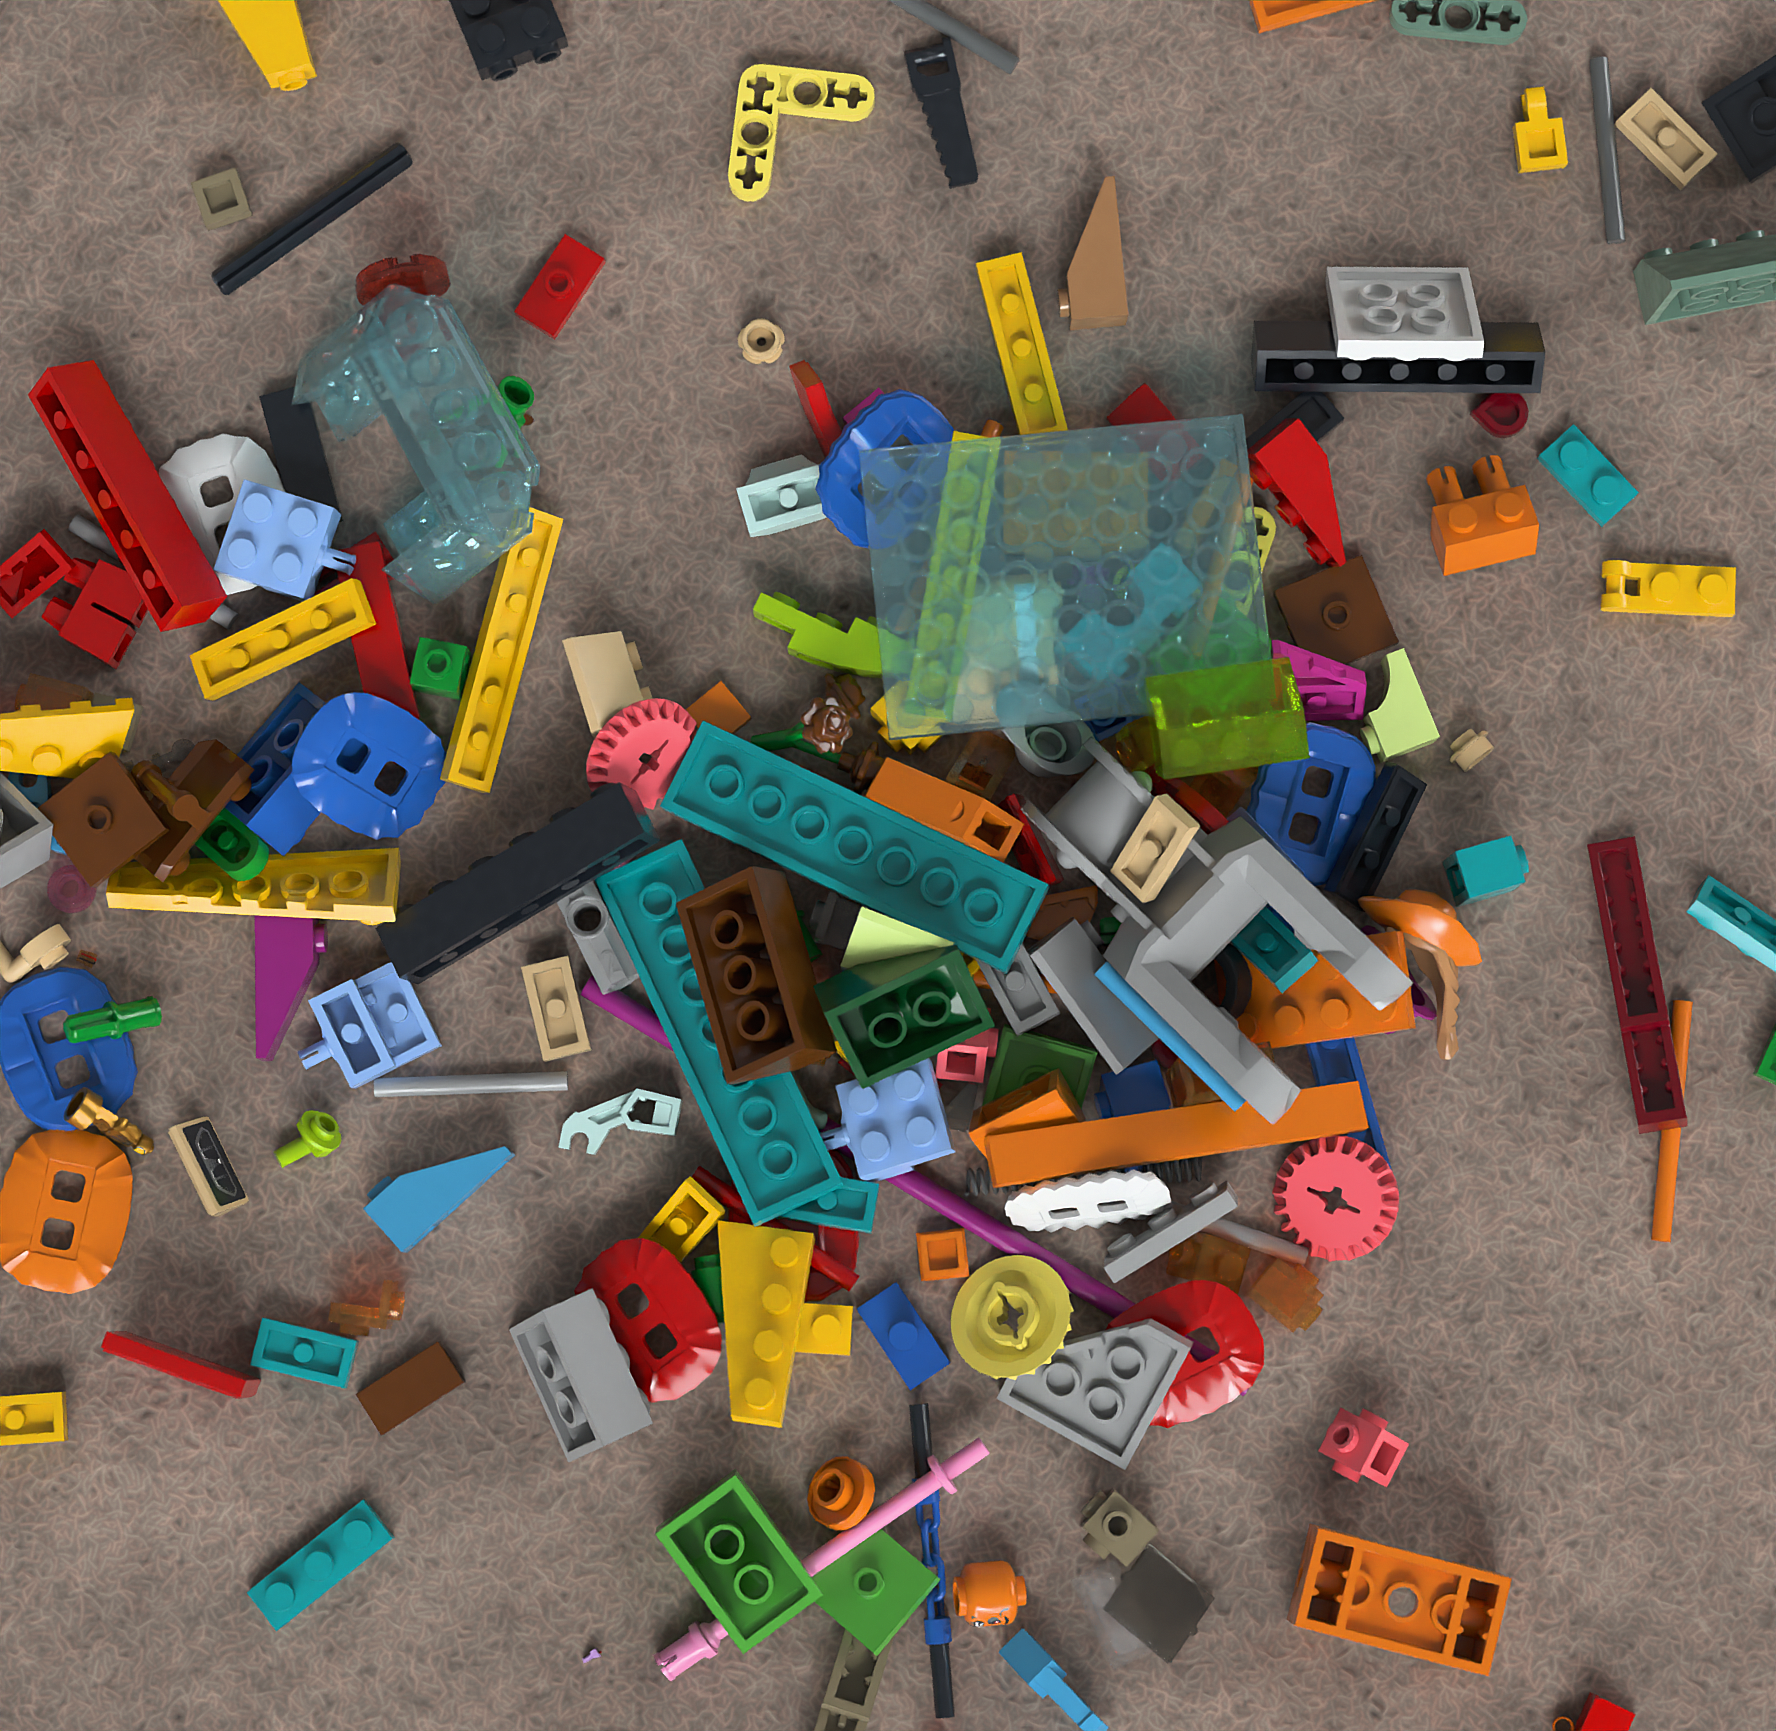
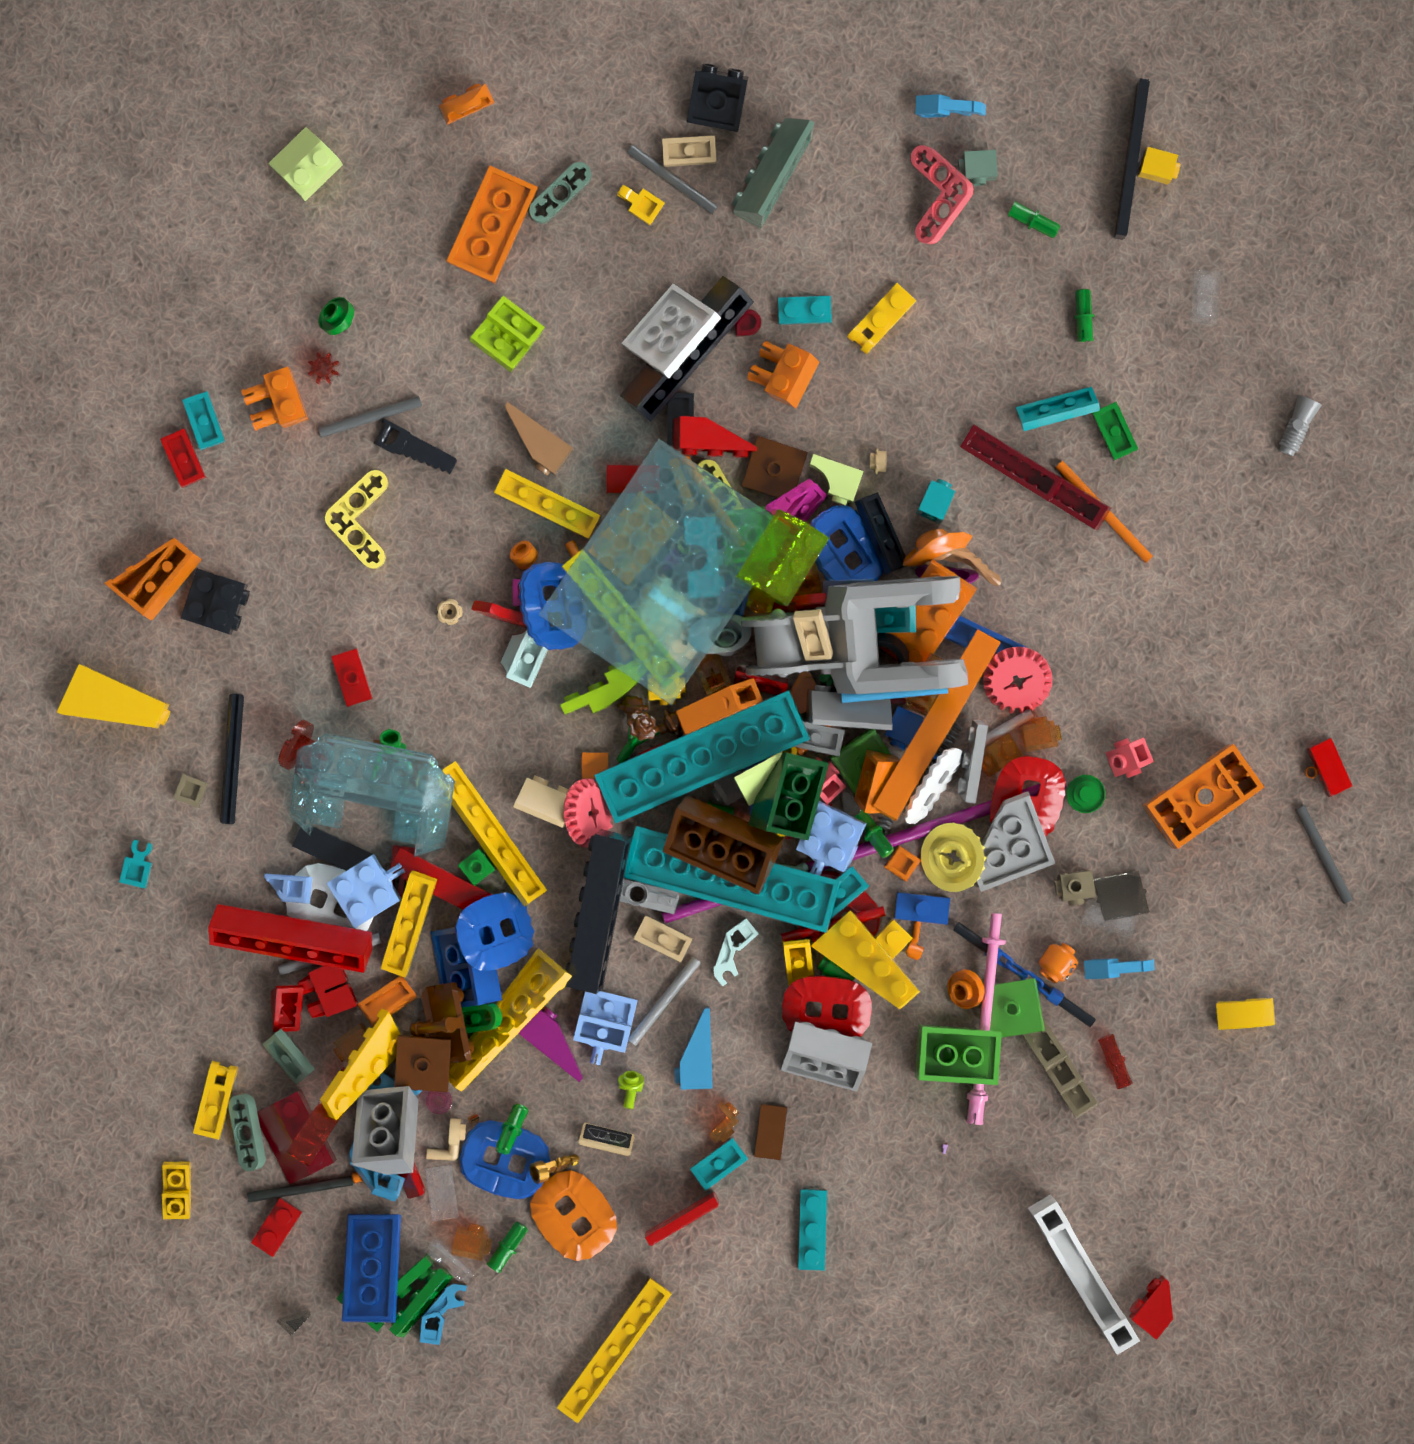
camera: 50 degrees left, 5 degrees up
(52, 216) = (136, 869): none -> teal plate
(156, 700) = (390, 998): none -> orange tile
(200, 441) = (291, 888): none -> light blue tile
(835, 1375) = (915, 951): none -> orange hand
(925, 375) = (523, 555): none -> orange tile
(949, 1179) = (874, 835): none -> green axle
(1206, 104) = (507, 333): none -> lime slope
(1258, 1430) = (1085, 794): none -> green plate

